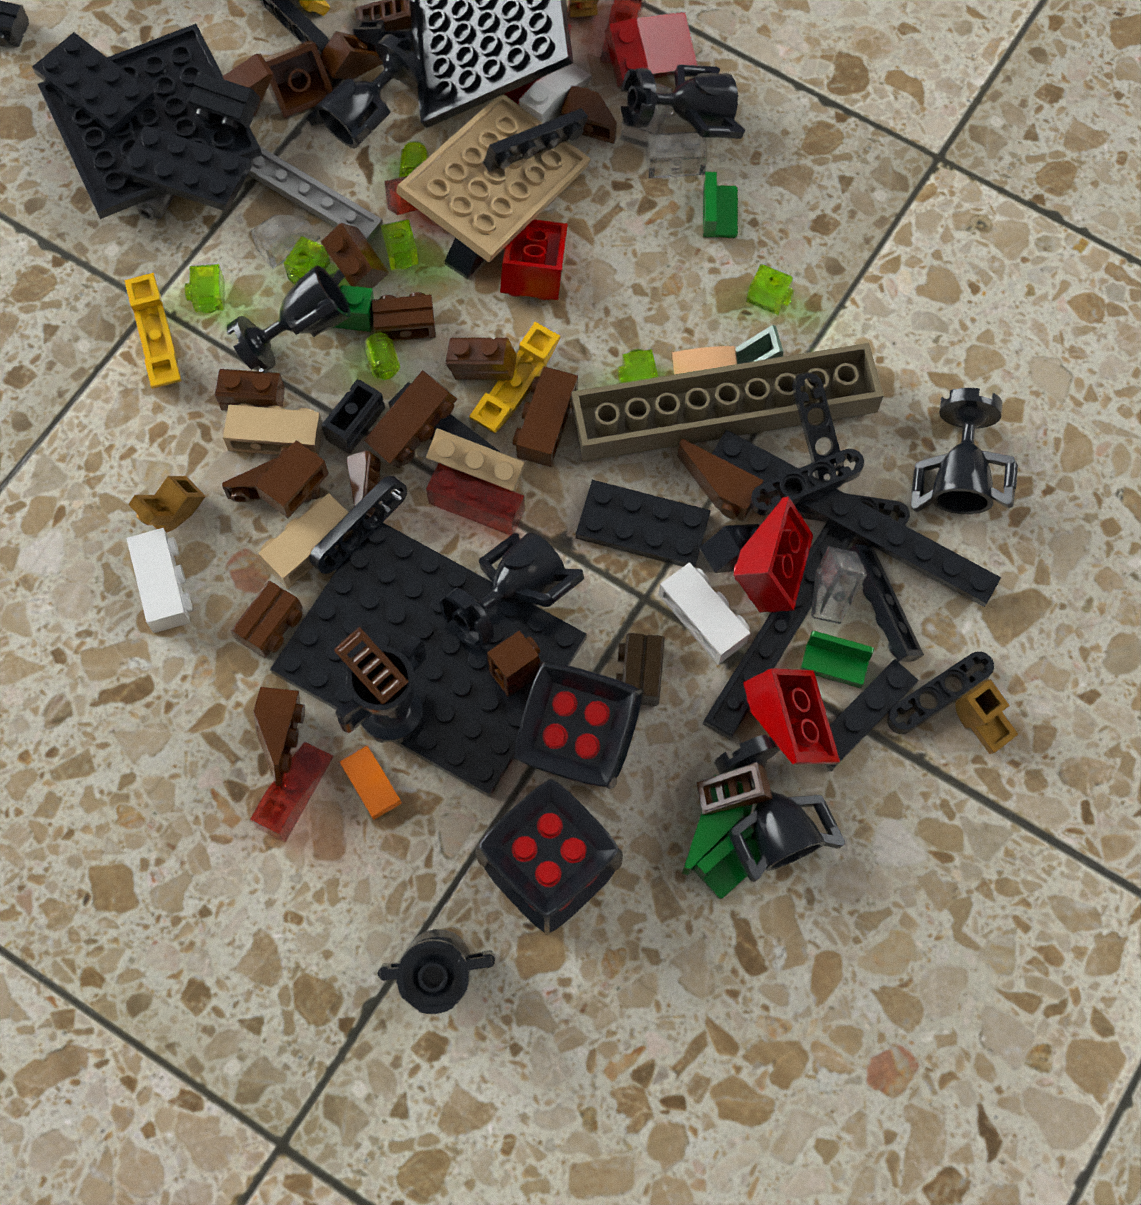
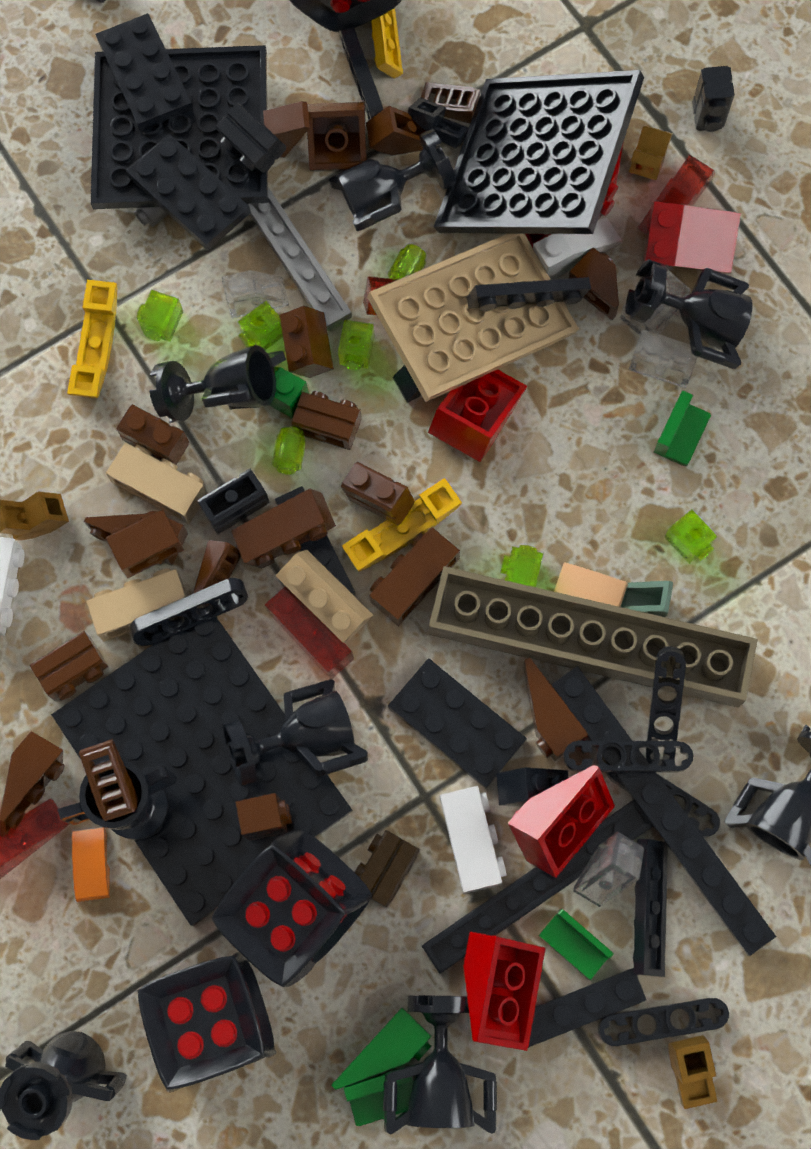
camera: 30 degrees right, 5 degrees up
(749, 797) = (431, 1039): reddish brown slope -> none

